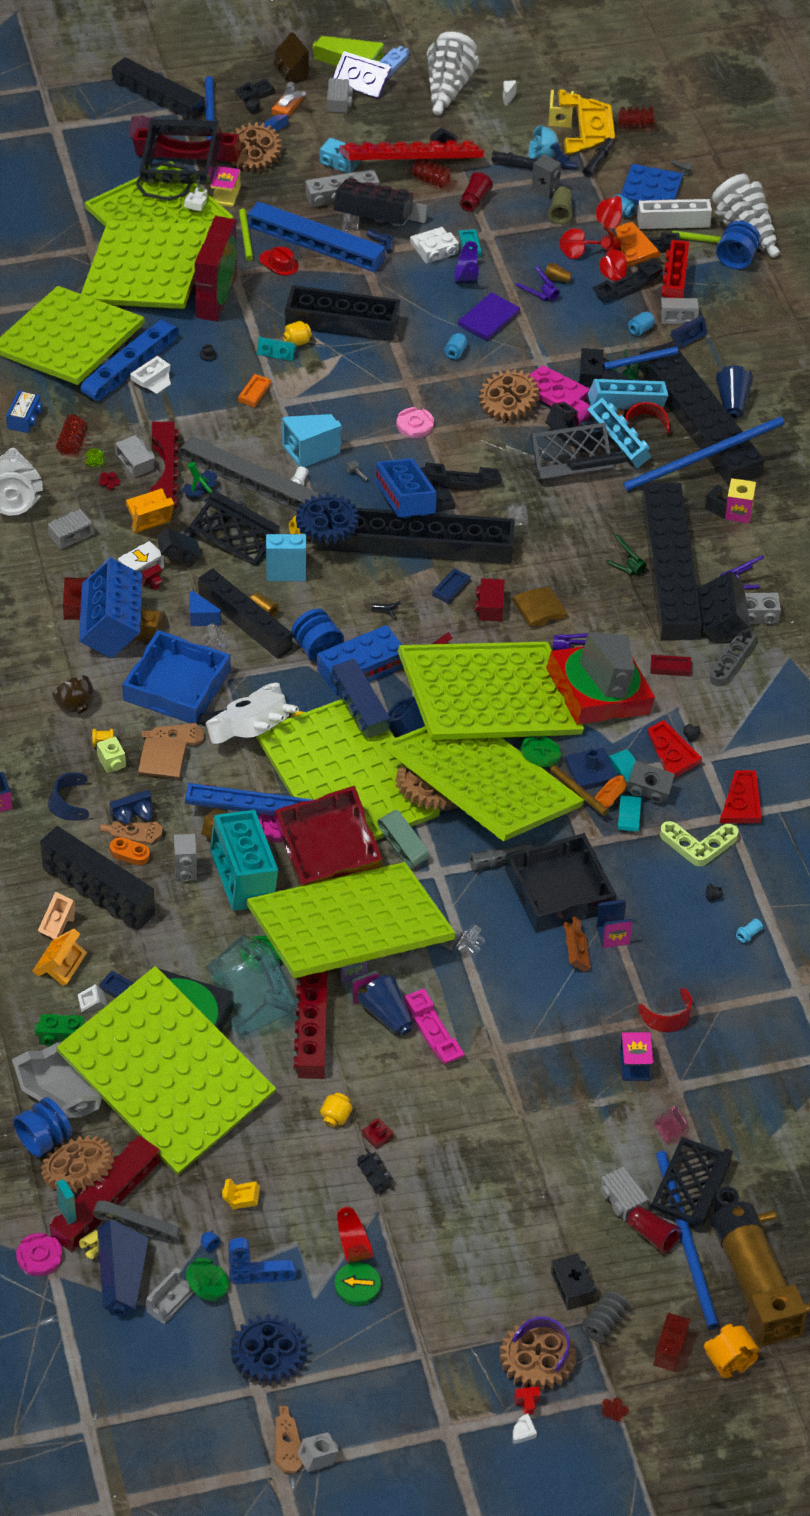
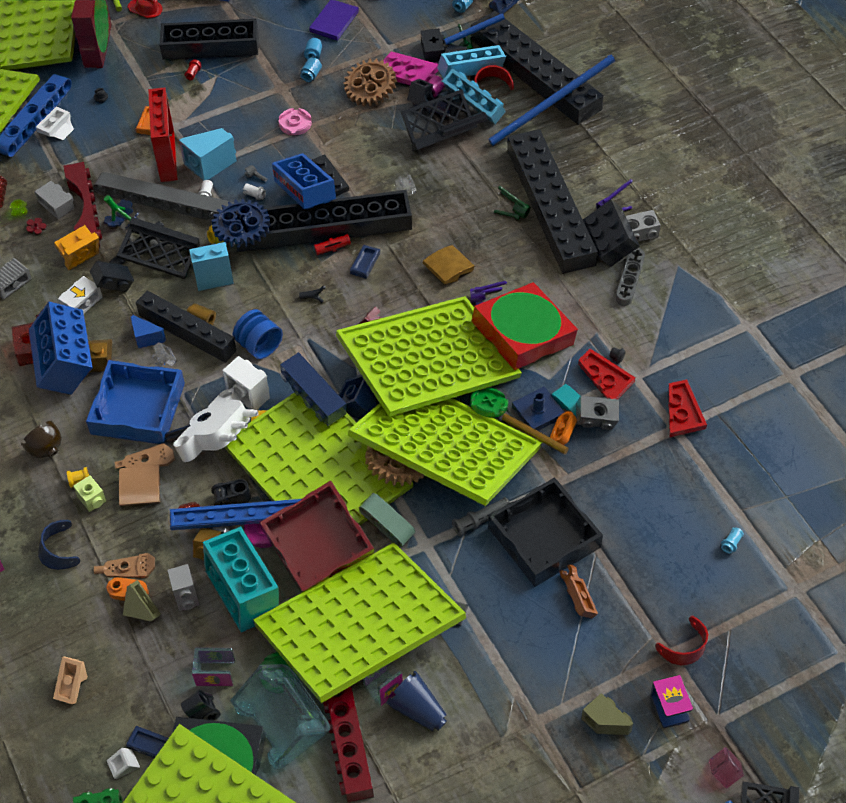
camera: 10 degrees left, 5 degrees up
(61, 957) = (82, 725): light orange bracket -> none
(97, 878) = (101, 629): black brick -> none
(126, 807) = (113, 547): dark blue tile -> none
(138, 862) = (139, 604): none -> olive slope
(152, 577) = (93, 309): dark red tile -> none
(177, 962) = (200, 706): none -> black piece
(200, 925) = (212, 655): none -> clear light blue piece
(254, 781) = (230, 494): none -> black piece
(265, 400) = (160, 129): none -> red window
(275, 348) = (159, 80): teal hinge -> none
(295, 680) = (247, 383): none -> white brick
(297, 333) = (174, 64): yellow head -> none
(318, 340) = (194, 67): none -> red pin
(354, 491) = (259, 193): none -> white pin
(373, 652) = (312, 339): blue brick -> none
(406, 562) = (344, 241): none -> red pin
(431, 1027) = (467, 717): dark pink slope -> none
(447, 368) = (310, 69): none -> dark azure brick
(463, 480) = (348, 164): black slope -> none
(470, 938) = (476, 609): clear tile -> none
(491, 599) = (404, 267): dark red brick -> none
(567, 1058) = (606, 718): none -> olive slope
(609, 663) = (532, 307): dark grey slope -> none
(611, 924) = (603, 558): piece -> none
(629, 813) = (586, 446): teal slope -> none
(670, 665) = (578, 295): dark red tile -> none
(696, 847) = (656, 467): yellowish green beam -> none
(713, 892) = (686, 508): black piece -> none
(715, 503) = (572, 142): black panel -> none
(734, 388) = (557, 40): dark blue cone -> none
(740, 500) = (594, 134): piece -> none

